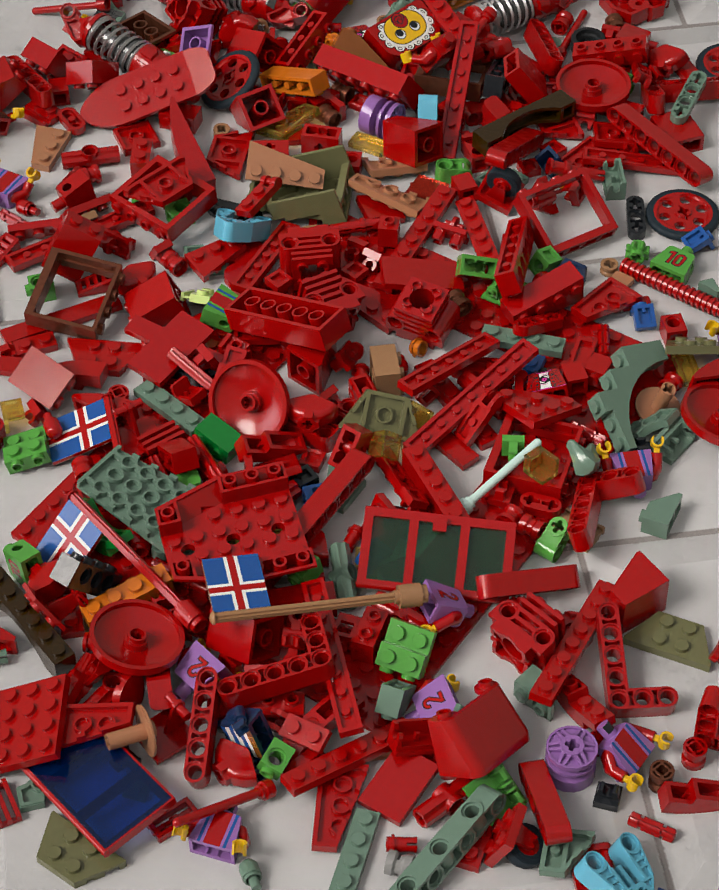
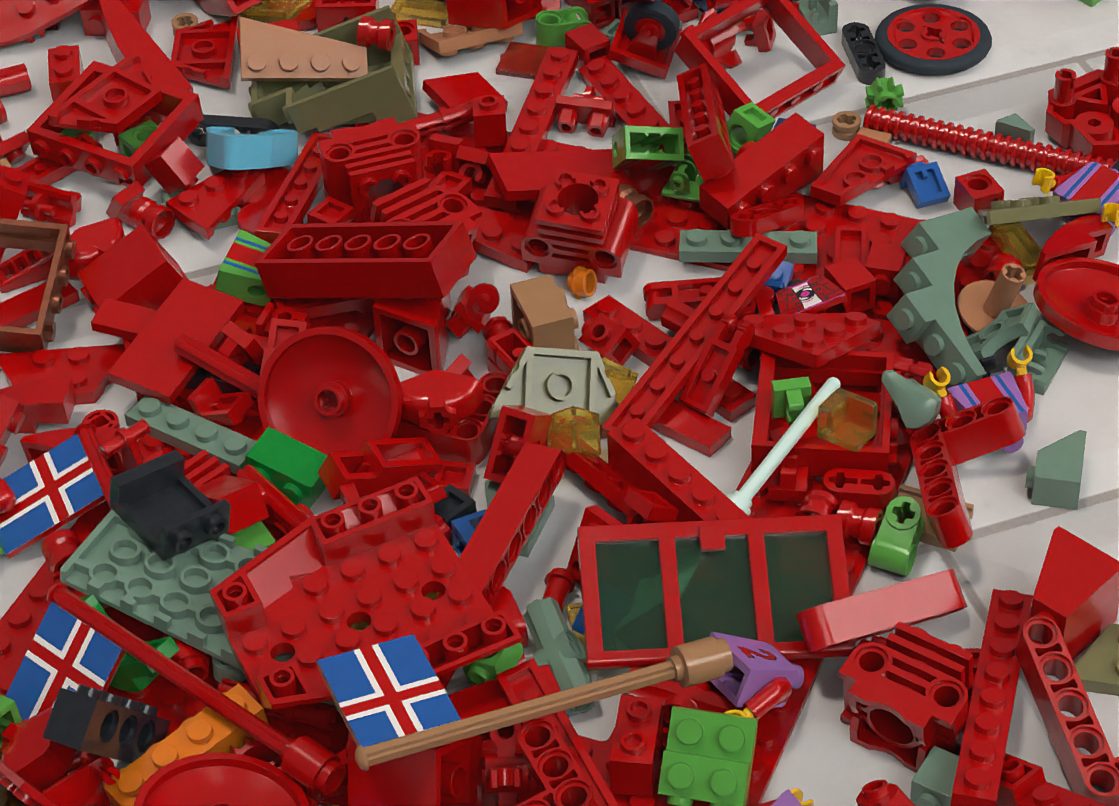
camera: 10 degrees left, 5 degrees down
(125, 135) = (34, 51): red tile -> none
(143, 453) = (166, 506): none -> black panel
(193, 232) = (174, 166): none -> red brick
(201, 296) = (207, 257): yellowish green plate -> none
(259, 196) = (270, 98): red plate -> none
(332, 162) = (376, 33): none -> red wheel
(346, 632) = (597, 747): red brick -> none
(388, 194) = (472, 71): nougat wing -> none
(448, 364) = (643, 294): red plate -> none
(603, 339) = (875, 223): red axle -> none
(675, 263) = (947, 101): bright green torso -> none
(698, 239) = (970, 67): blue bracket -> none

